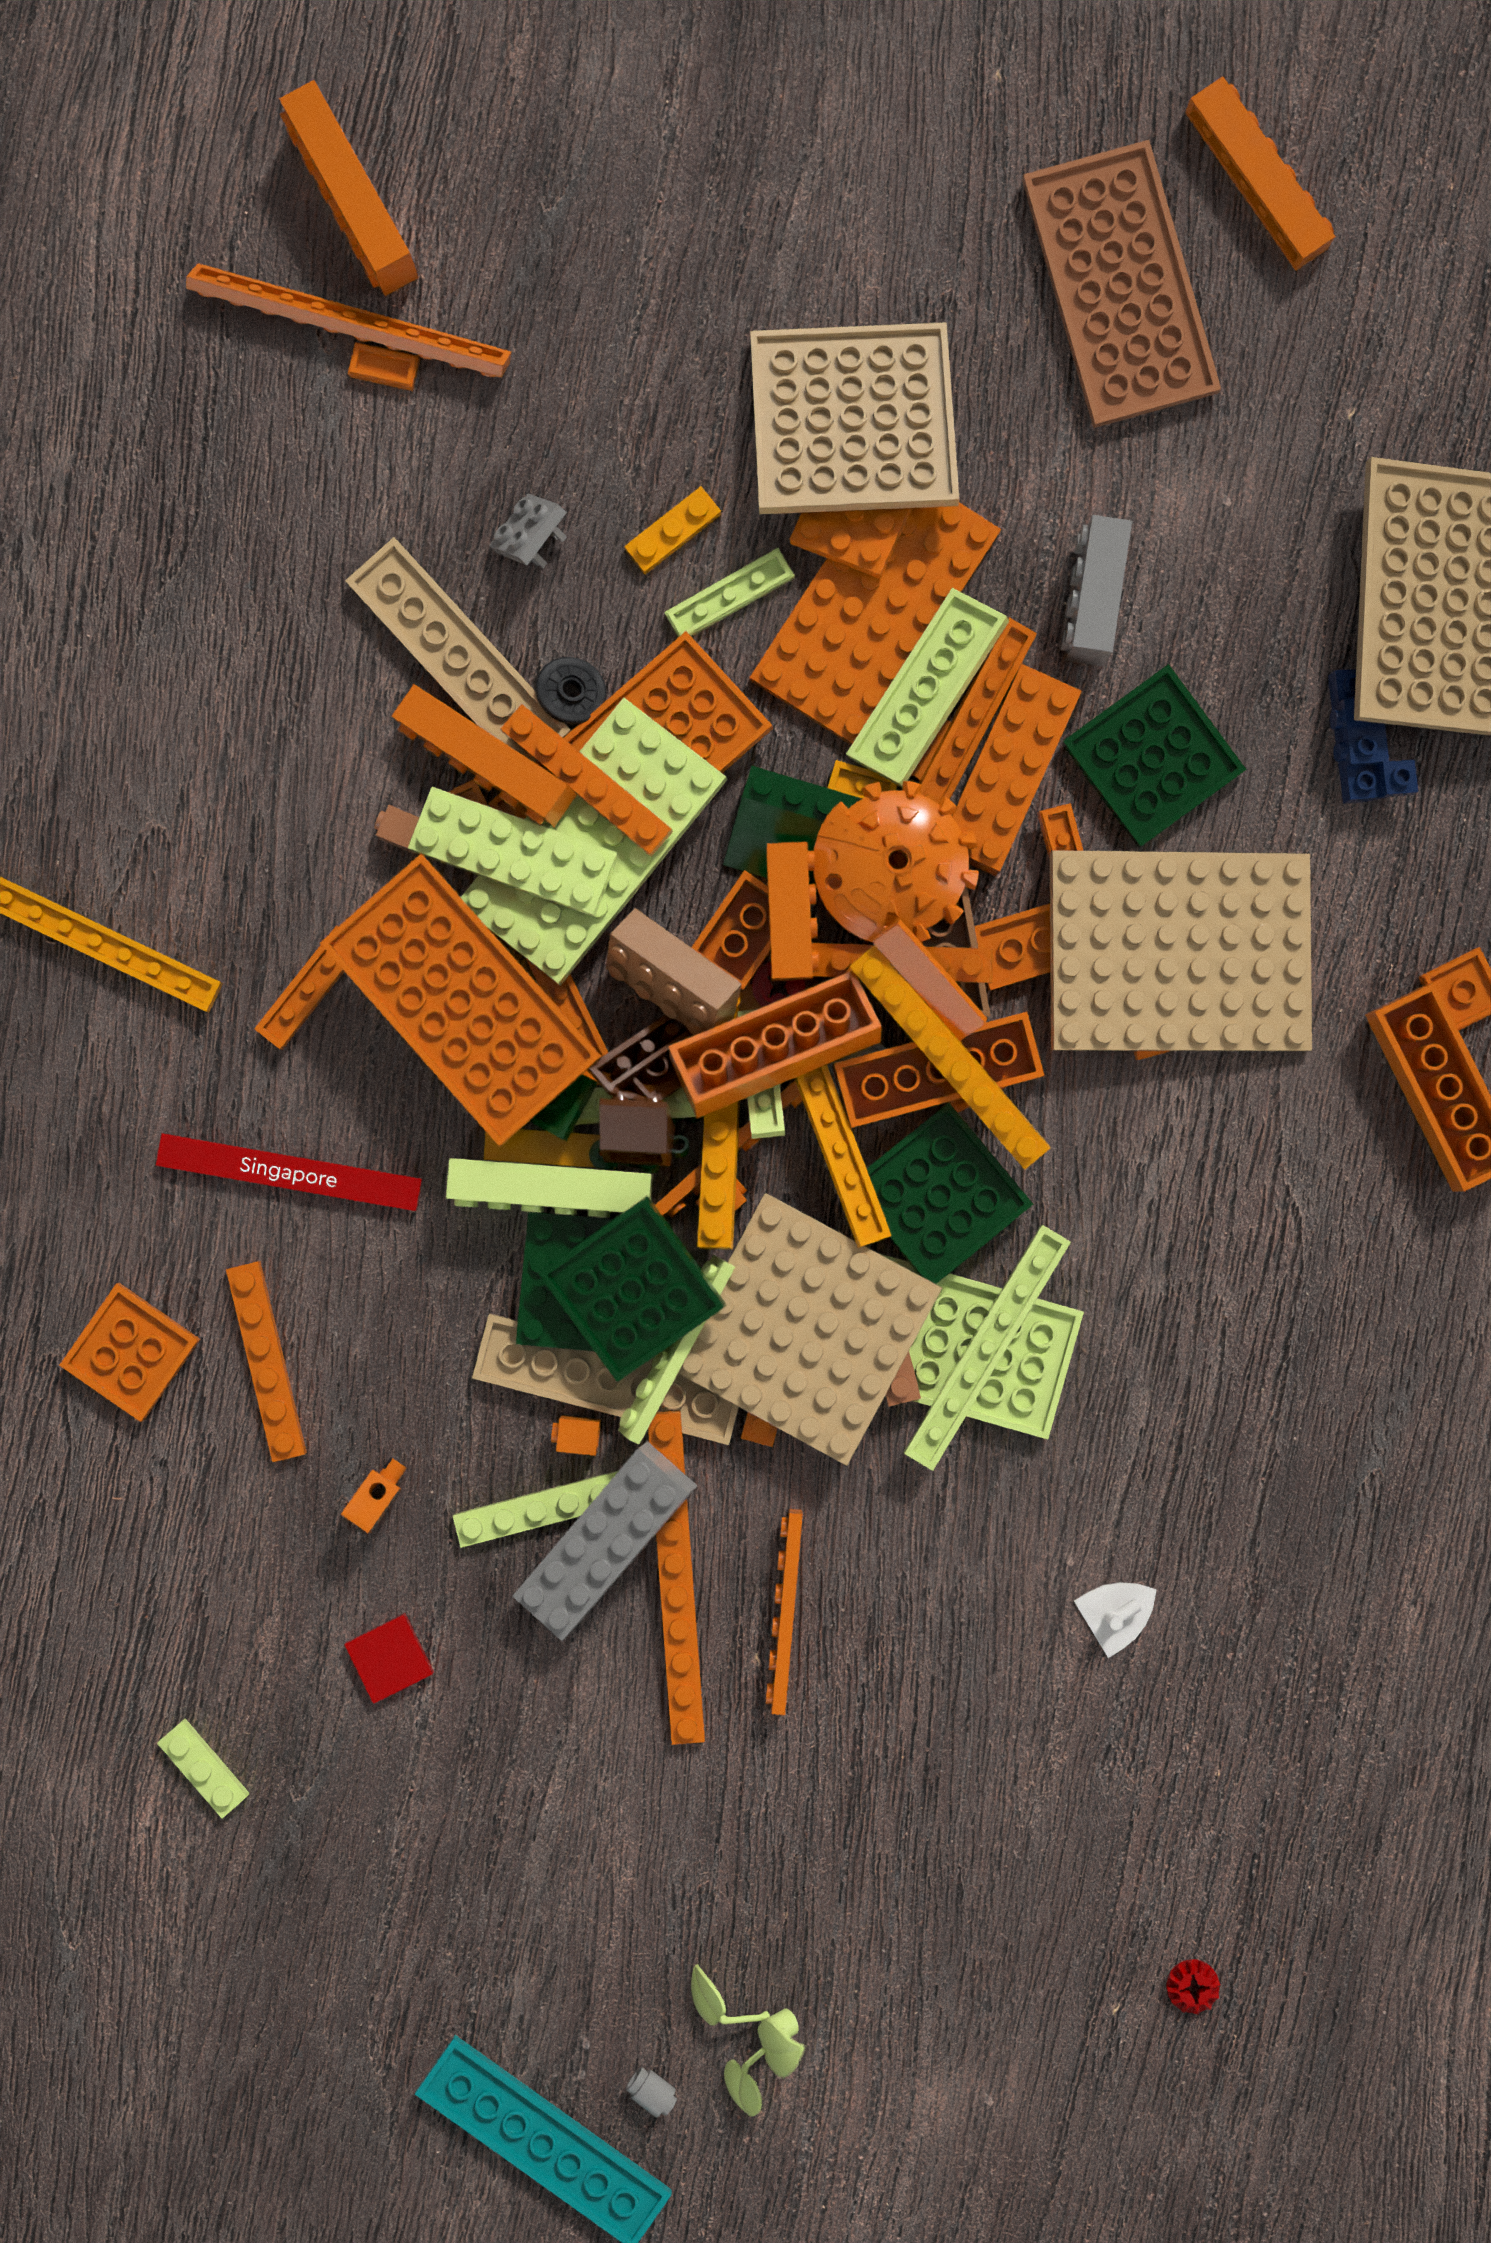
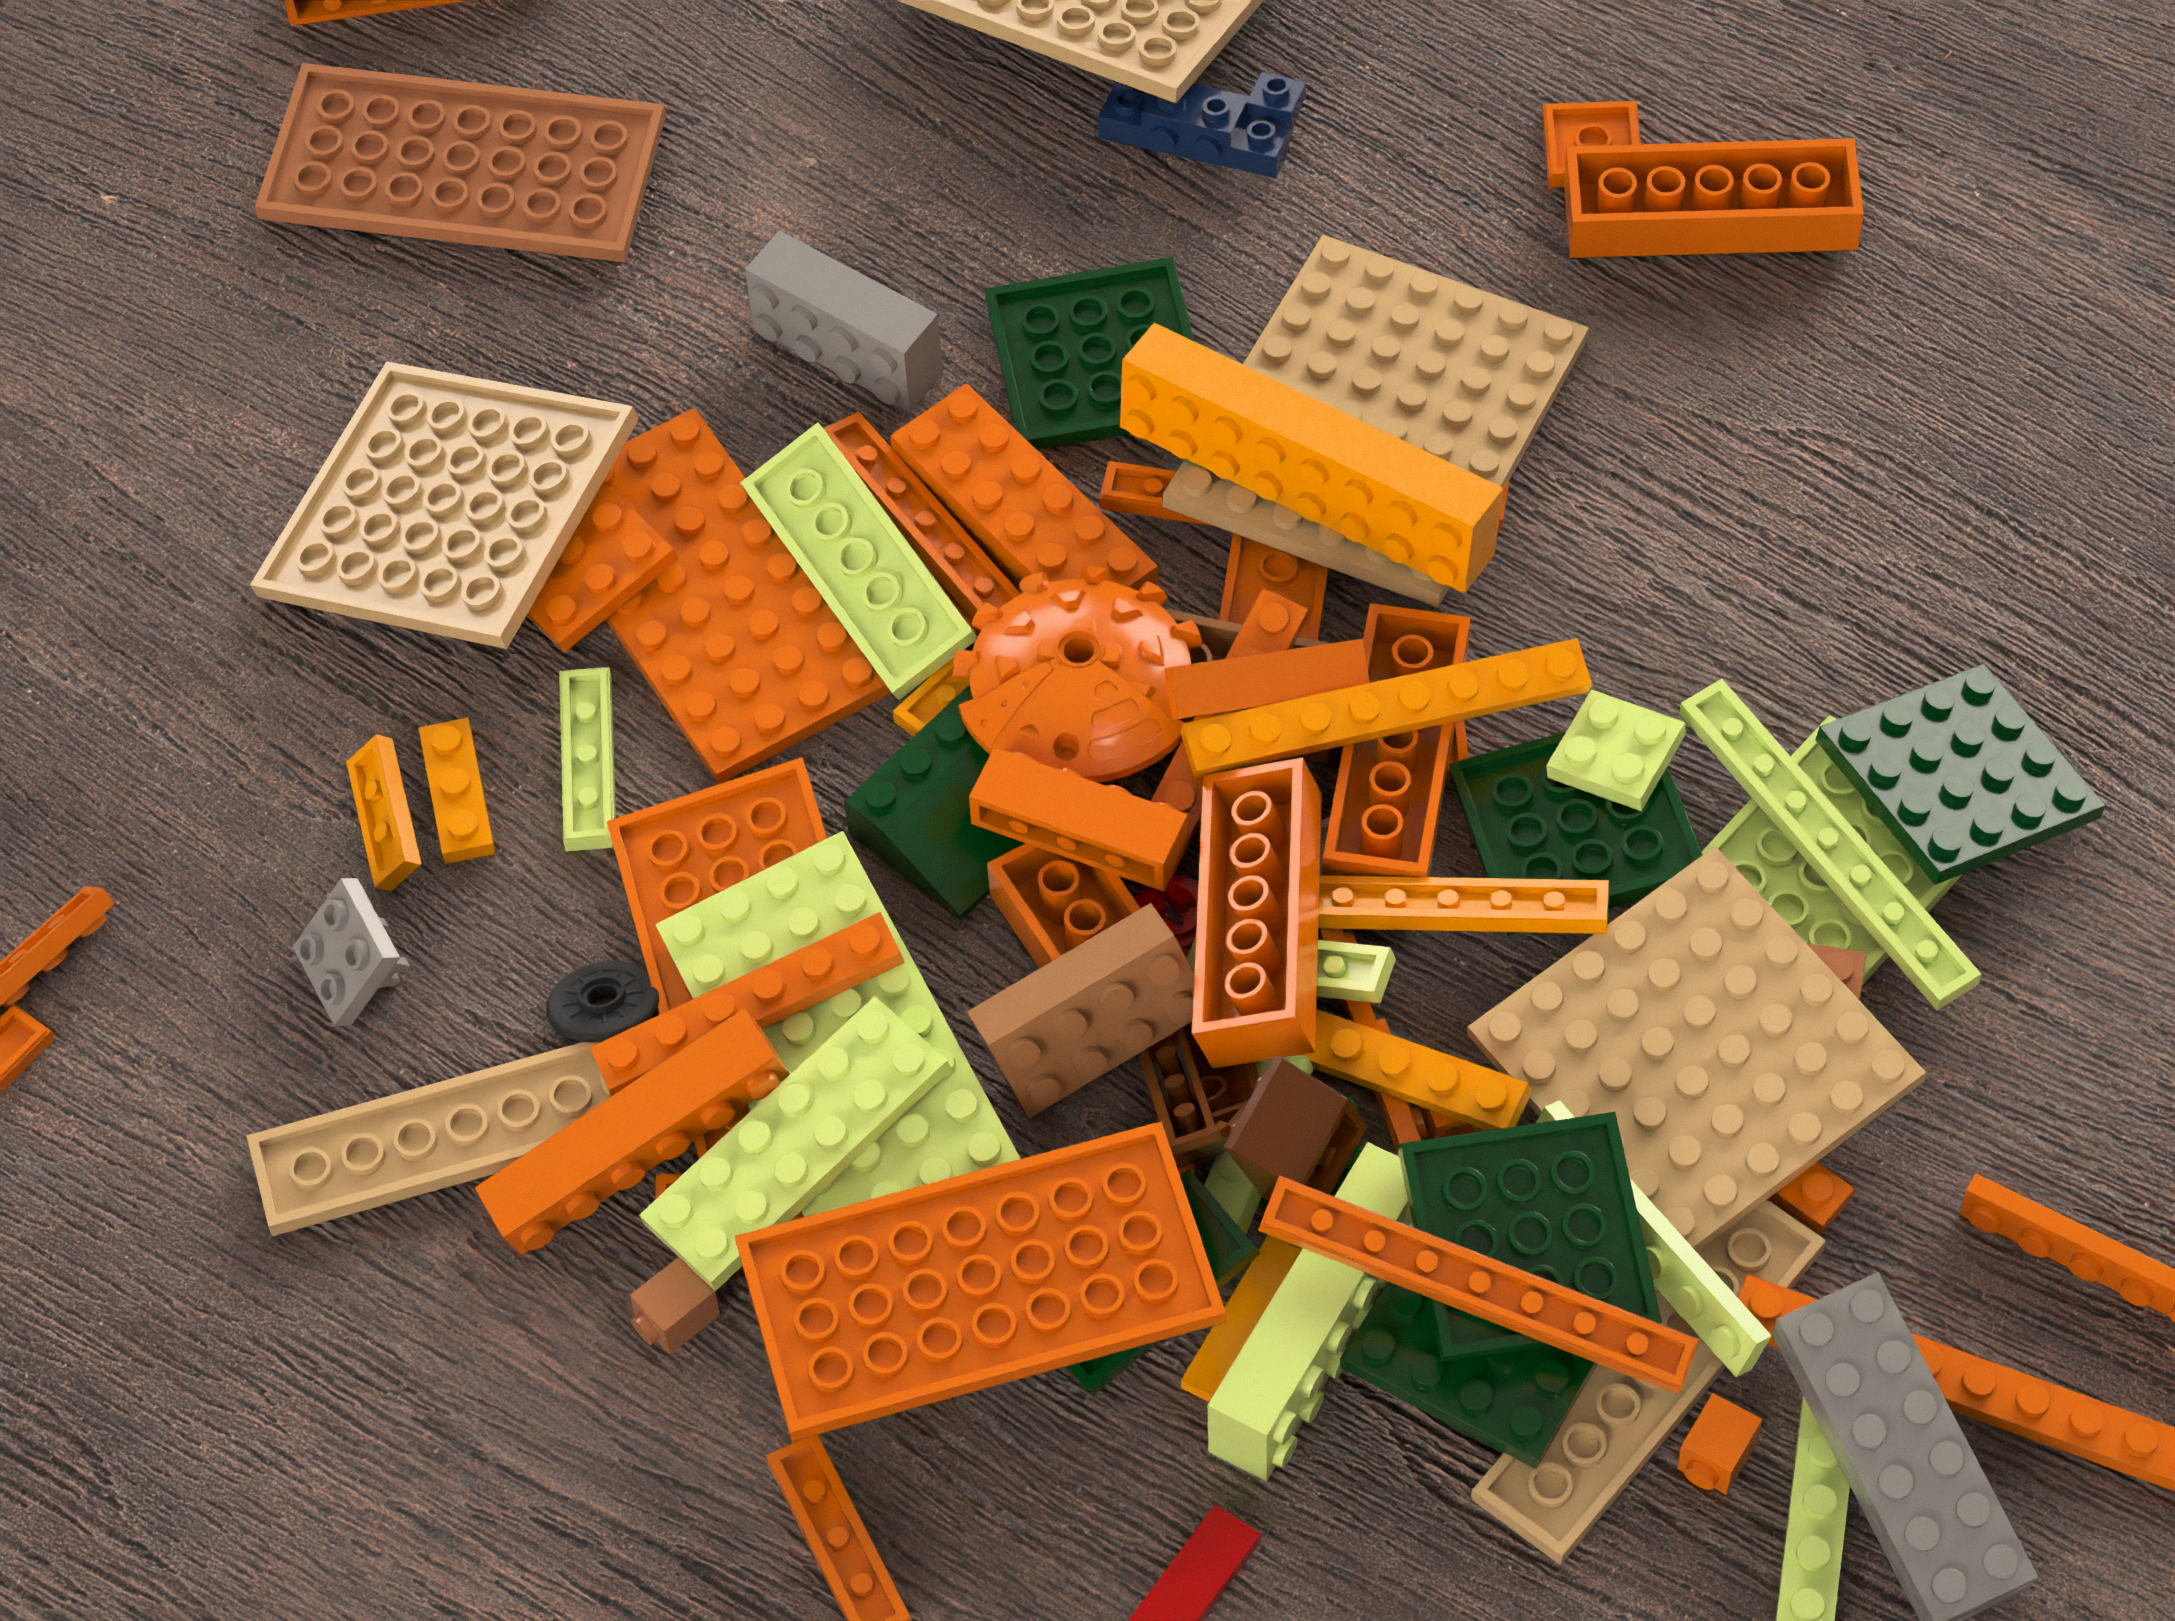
camera: 55 degrees left, 30 degrees down
(583, 1274) = (1479, 1285): none -> orange tile
(634, 497) = (383, 813): none -> light orange plate
(993, 1199) = (1616, 750): none -> yellowish green plate
(1075, 1403) = (1959, 773): none -> plate
(1100, 931) = (1310, 457): none -> light orange brick

